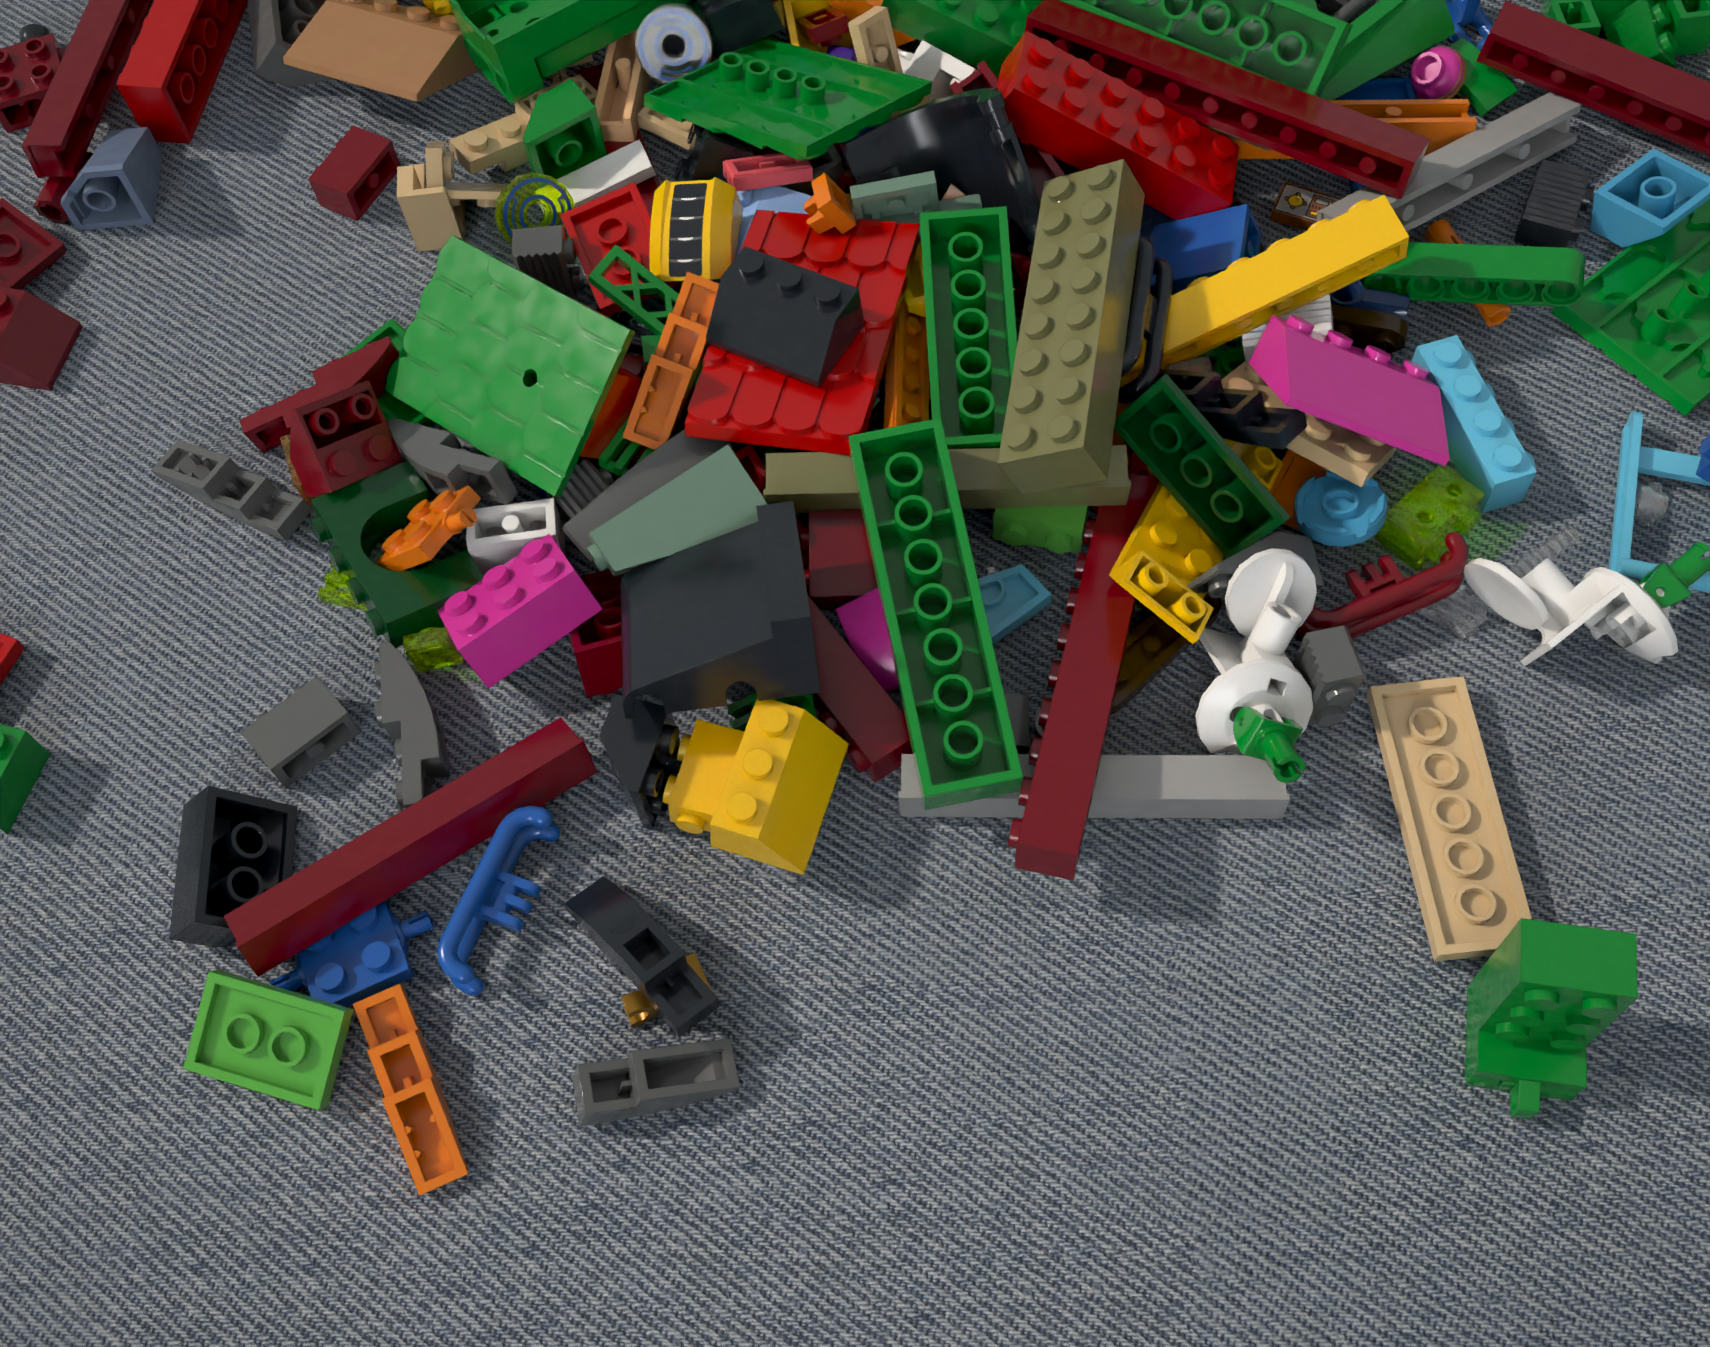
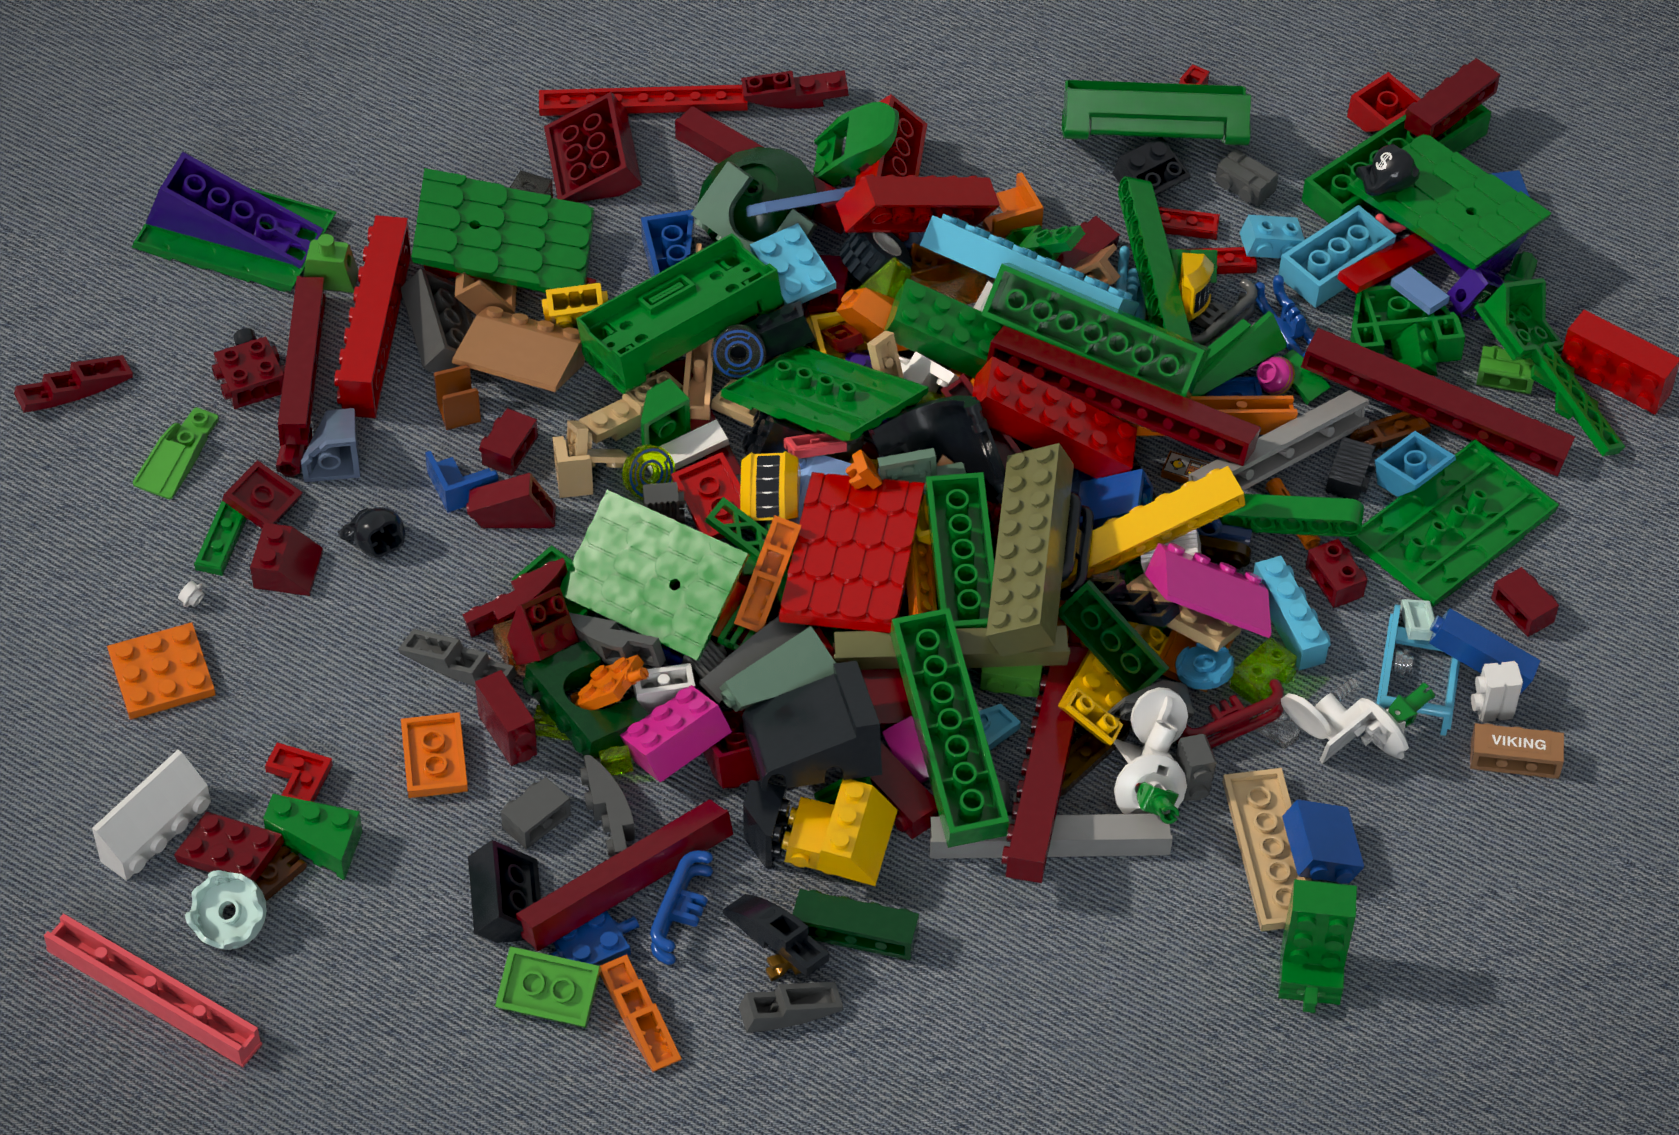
camera: 10 degrees left, 10 degrees down
(149, 298) = (375, 531): none -> black piece
(169, 636) = (434, 755): none -> orange plate
(273, 580) = (506, 718): none -> dark red brick
(275, 239) = (450, 483): none -> blue panel
(290, 111) = (456, 398): none -> dark orange piece
(343, 259) = (512, 504): none -> dark red slope
(770, 937) = (858, 924): none -> dark green brick
(784, 316) = (841, 544): black slope -> none
(1538, 362) = (1336, 573): none -> dark red brick
(1538, 810) = (1323, 841): none -> blue brick
(1610, 150) = (1391, 430): none -> reddish brown hinge
(1670, 435) = (1417, 619): none -> light aqua tile

